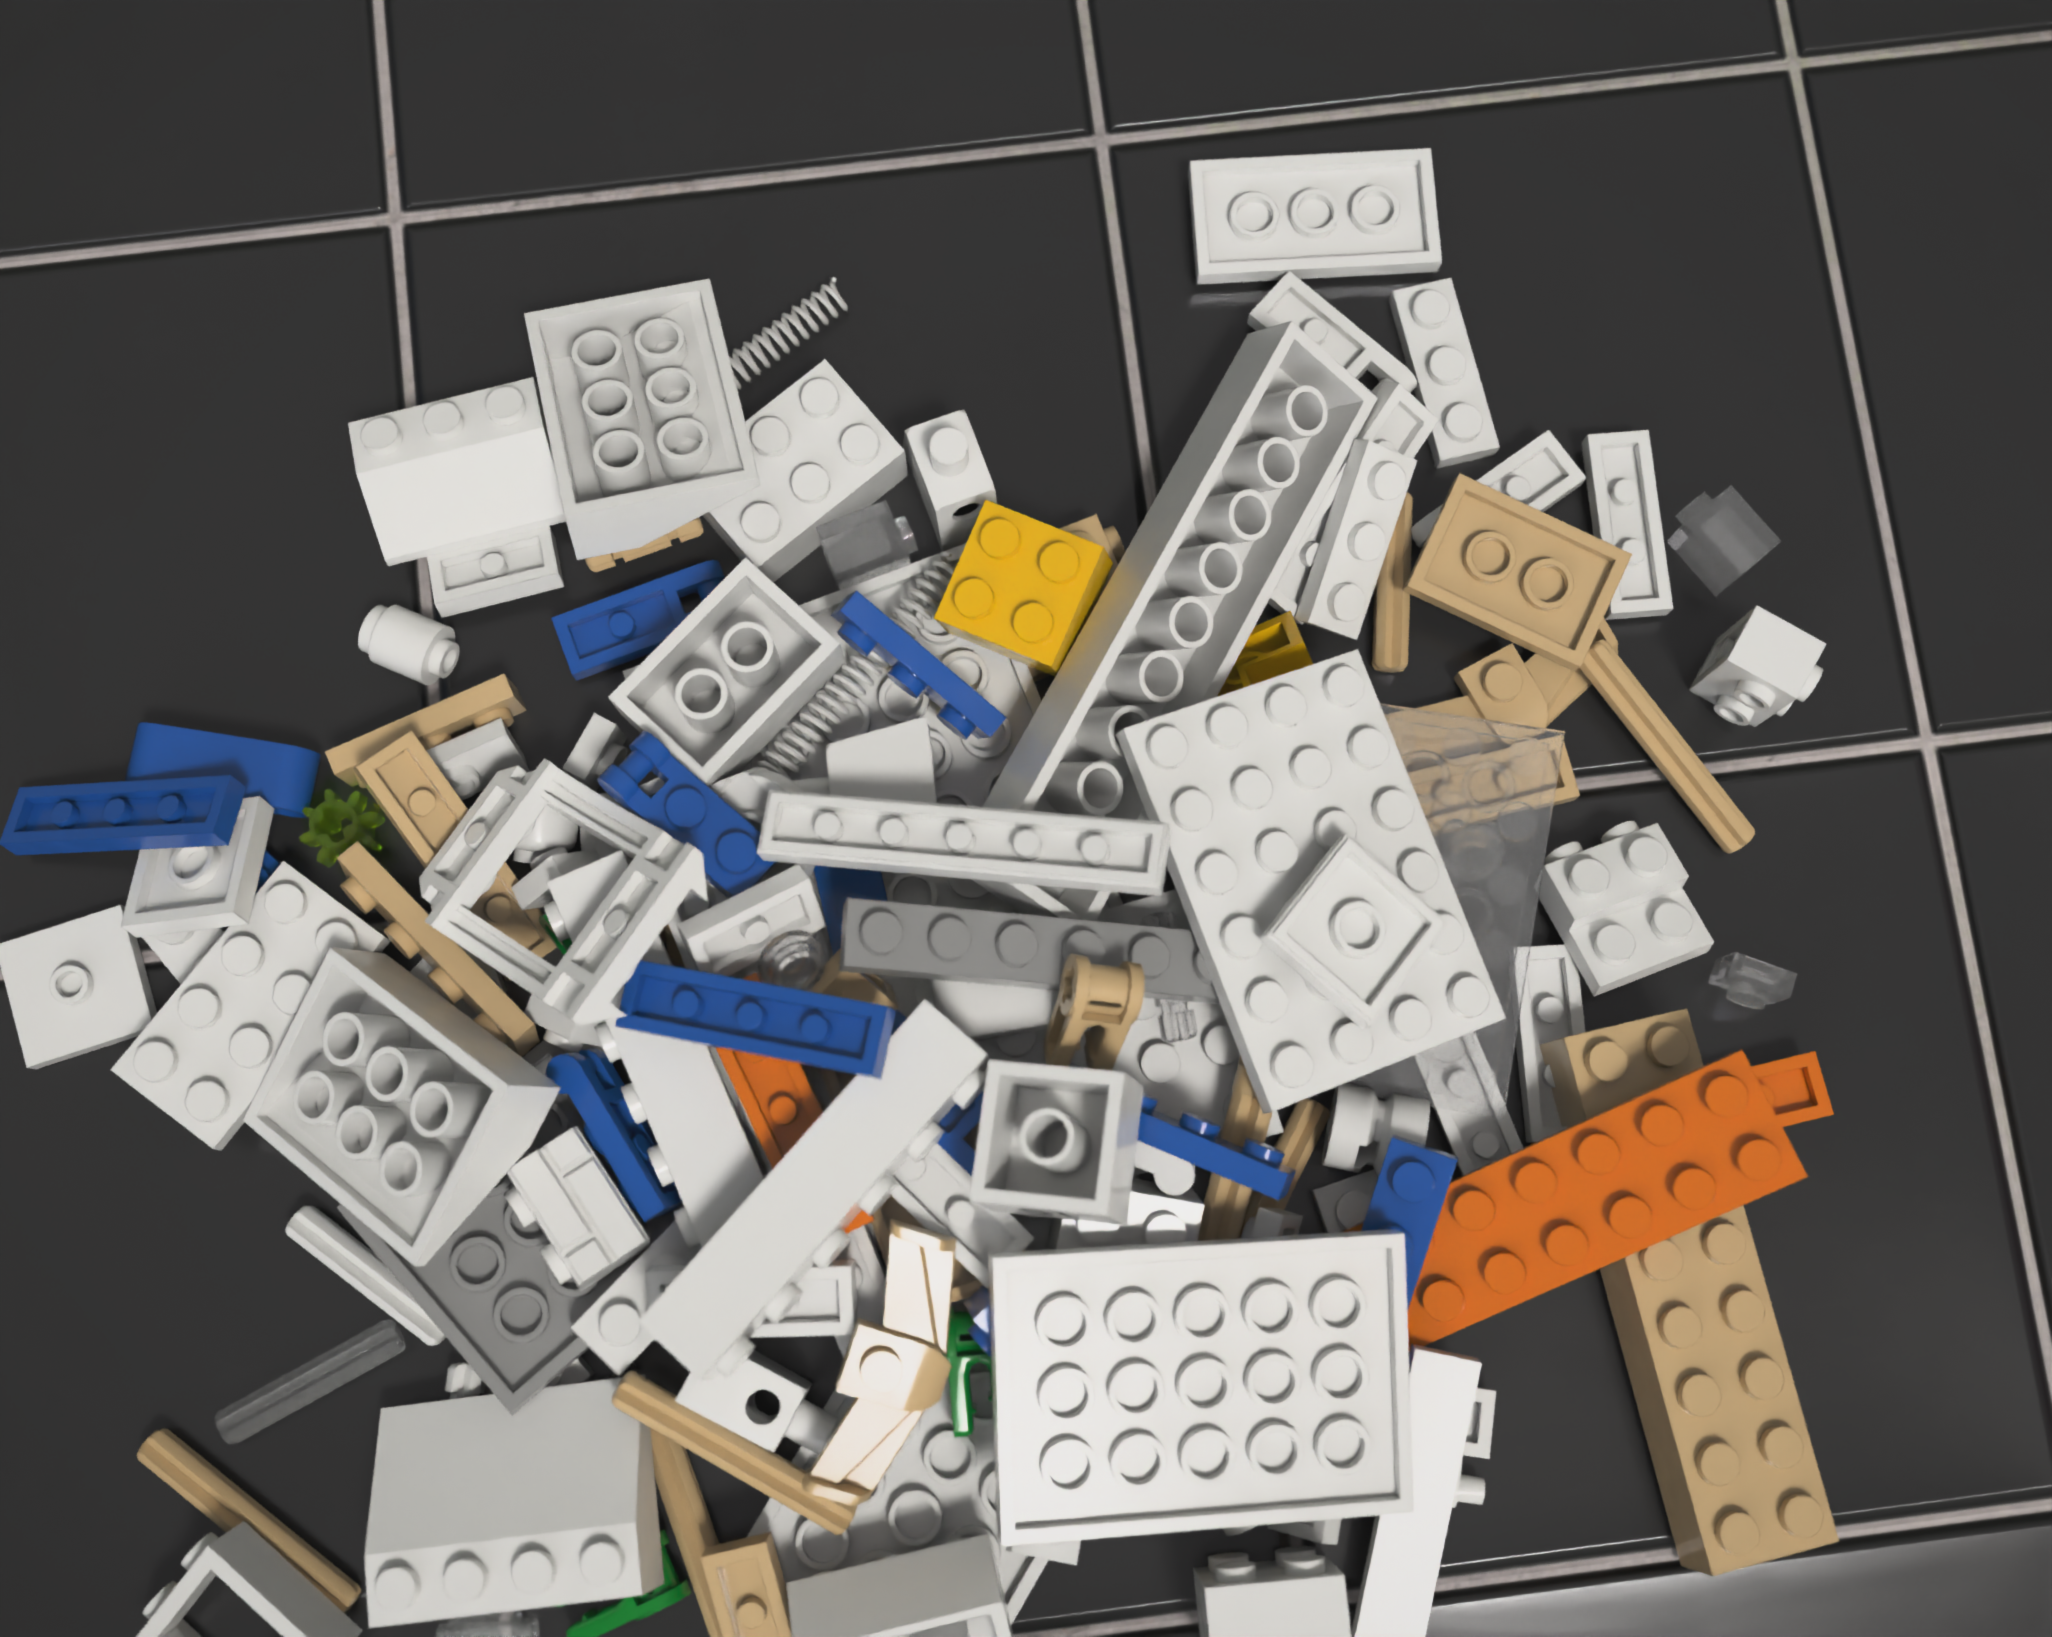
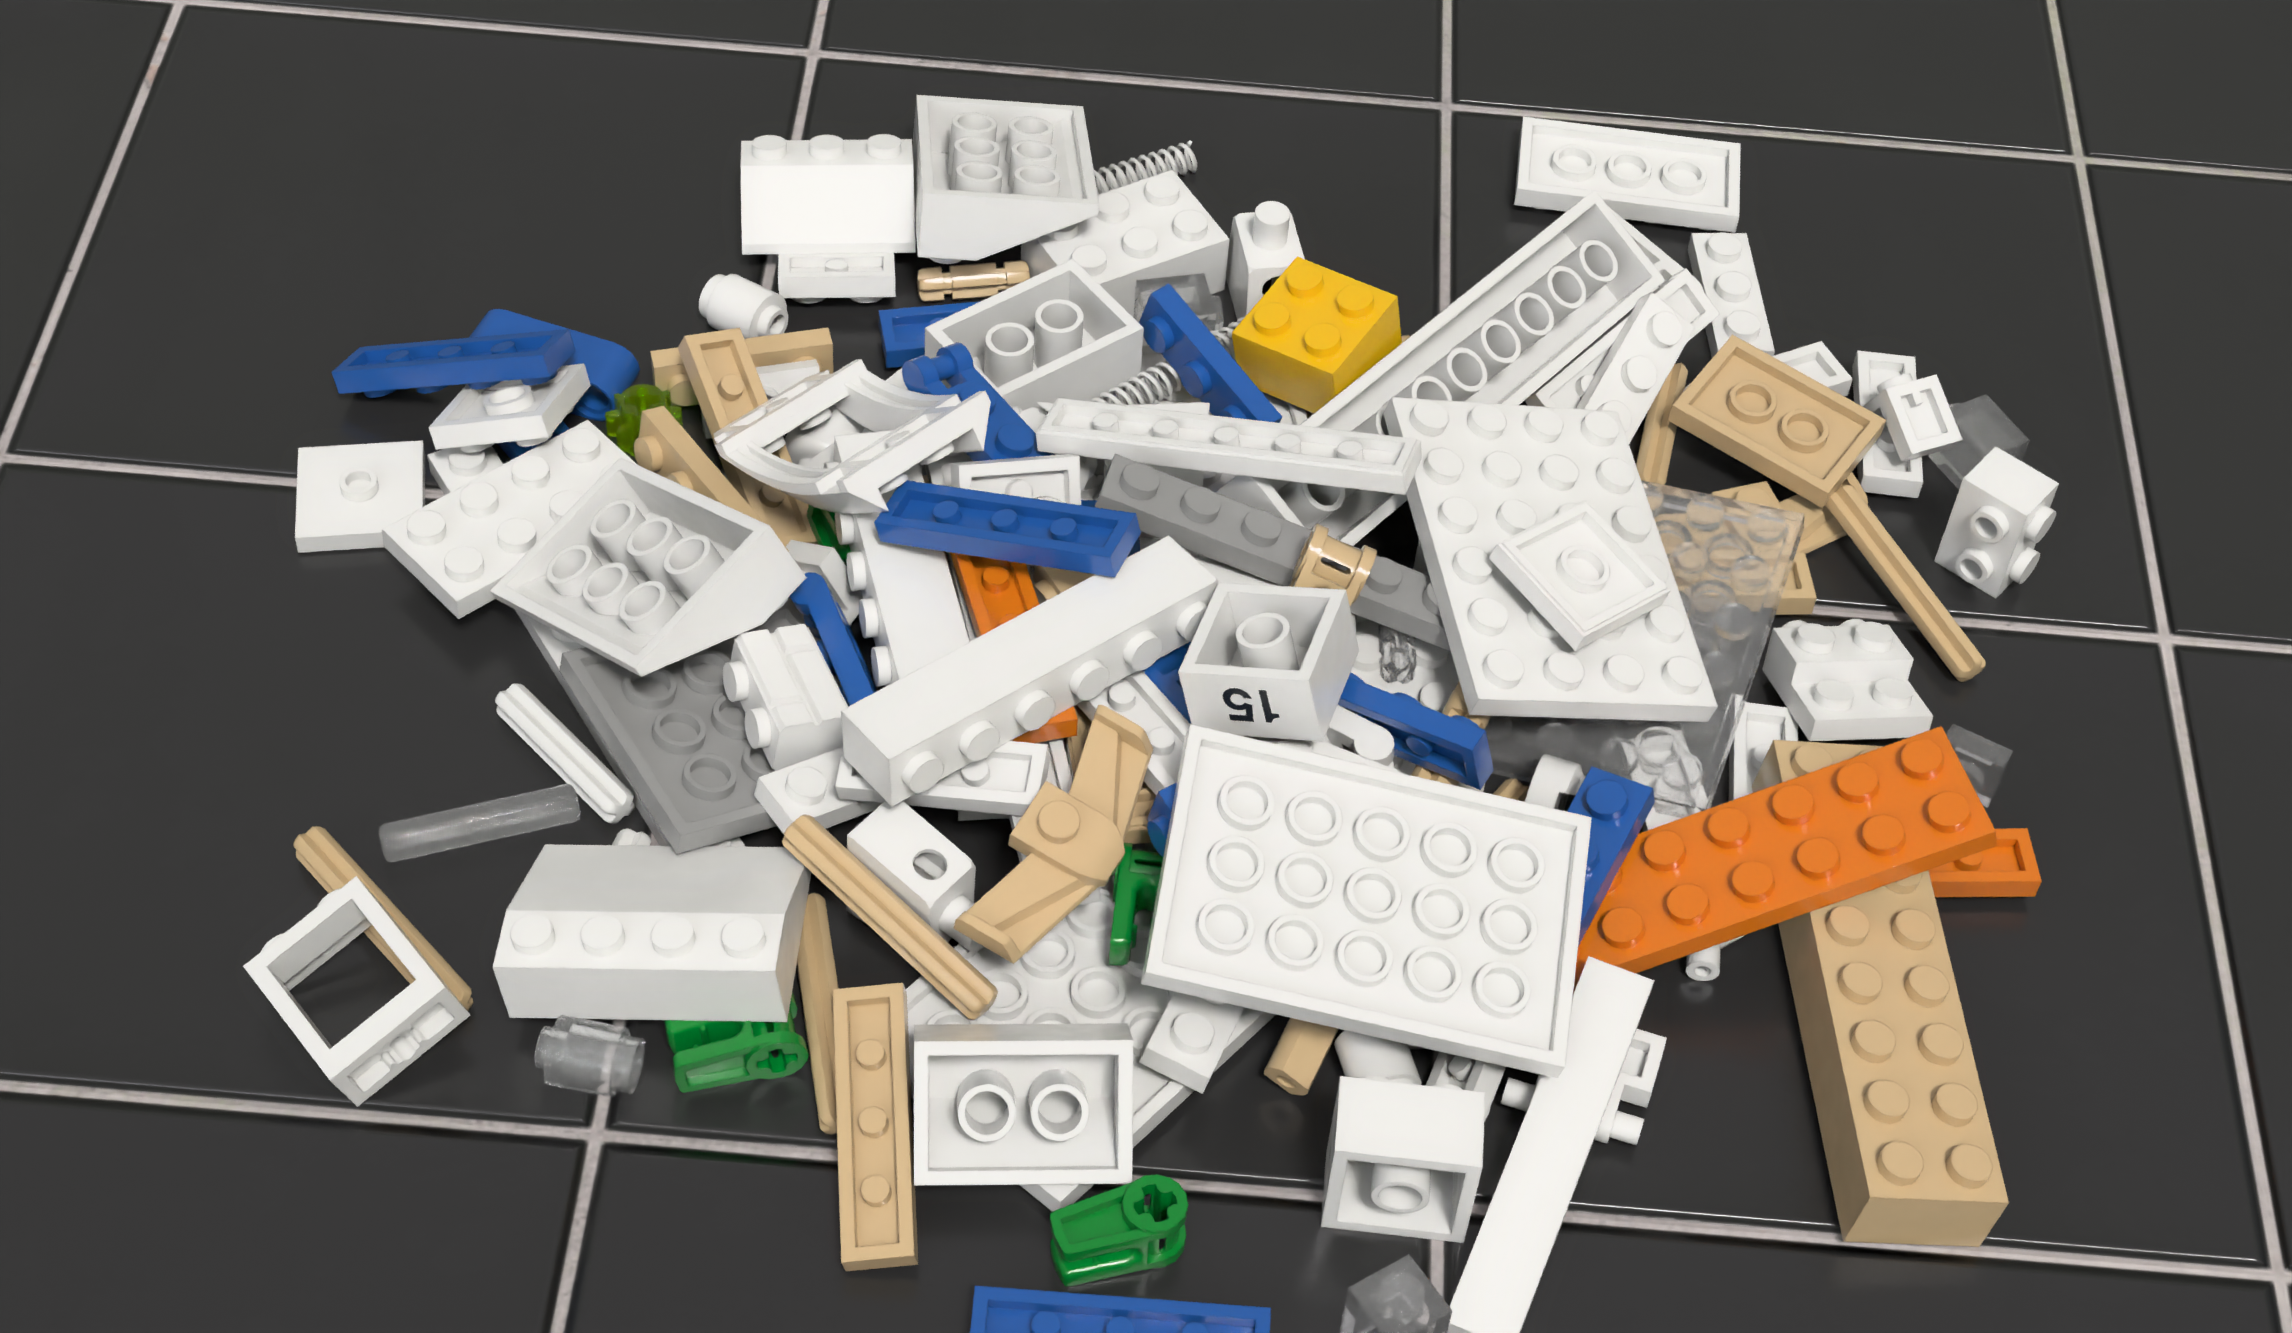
camera: 10 degrees right, 30 degrees down
(1659, 536) = (1916, 415): none -> white bracket

